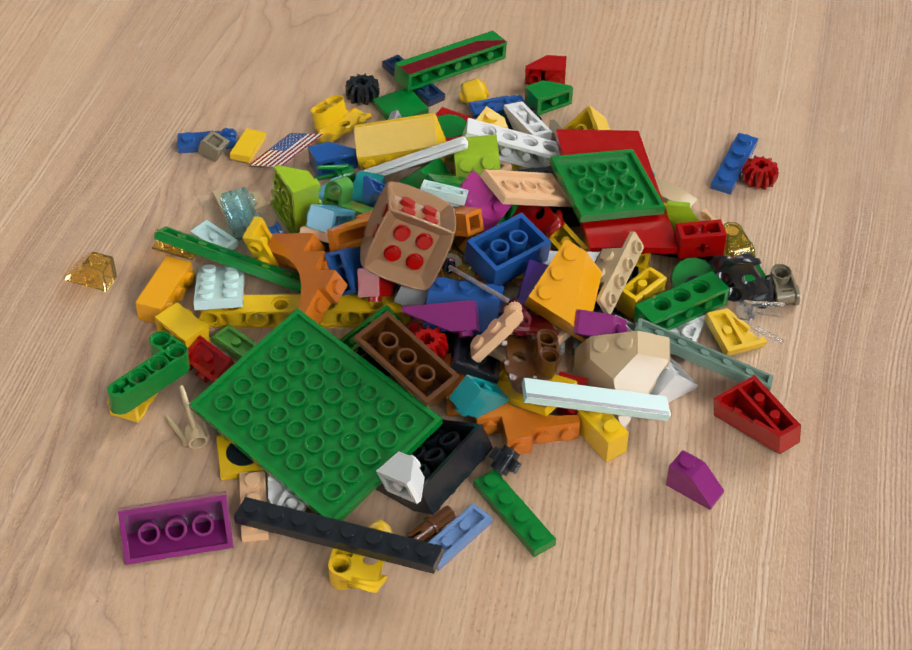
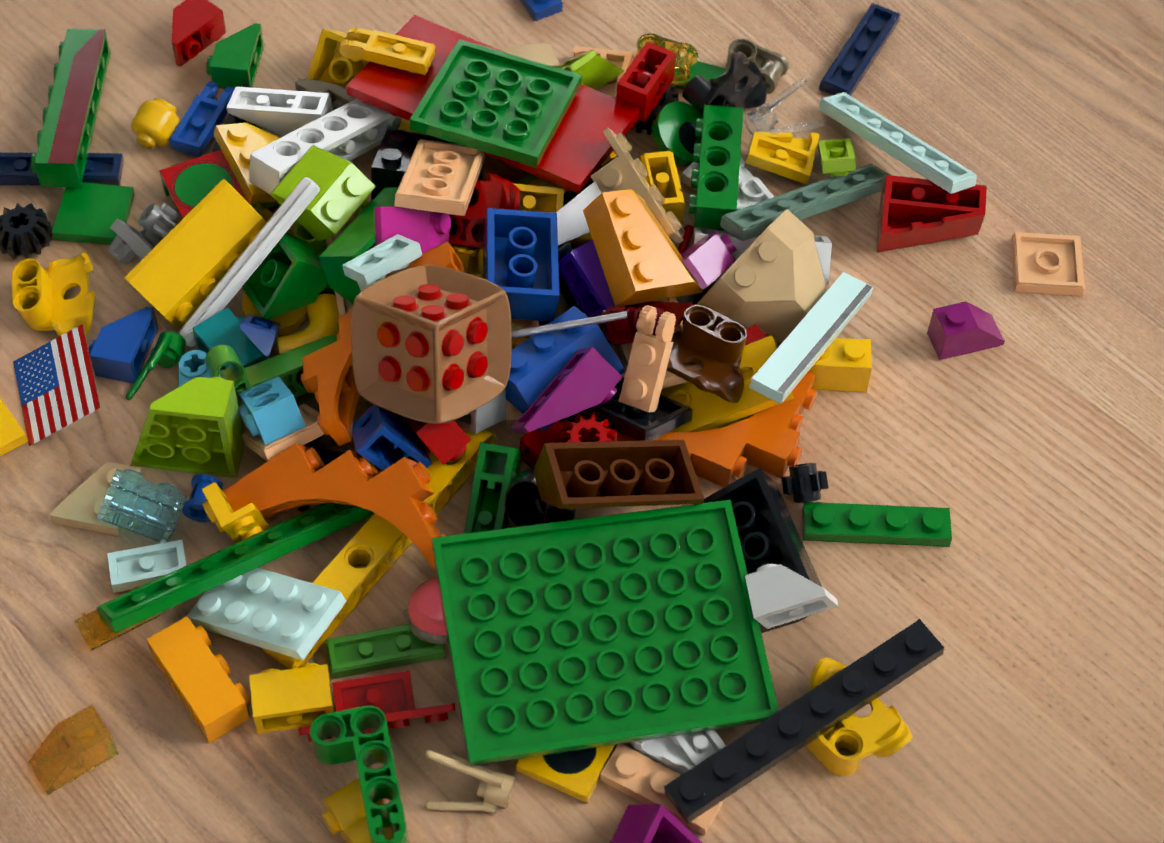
camera: 55 degrees left, 10 degrees up
(432, 524) = (841, 619): reddish brown axle -> none
(461, 532) = (866, 598): medium blue tile -> none
(477, 397) = (713, 447): teal slope -> none
(595, 130) = (388, 50): none -> yellow hinge
(754, 354) = (837, 157): none -> lime plate
(792, 373) = (898, 143): none -> light aqua tile
(794, 499) = (1047, 264): none -> light nougat tile
(855, 329) = (860, 50): none -> dark blue tile

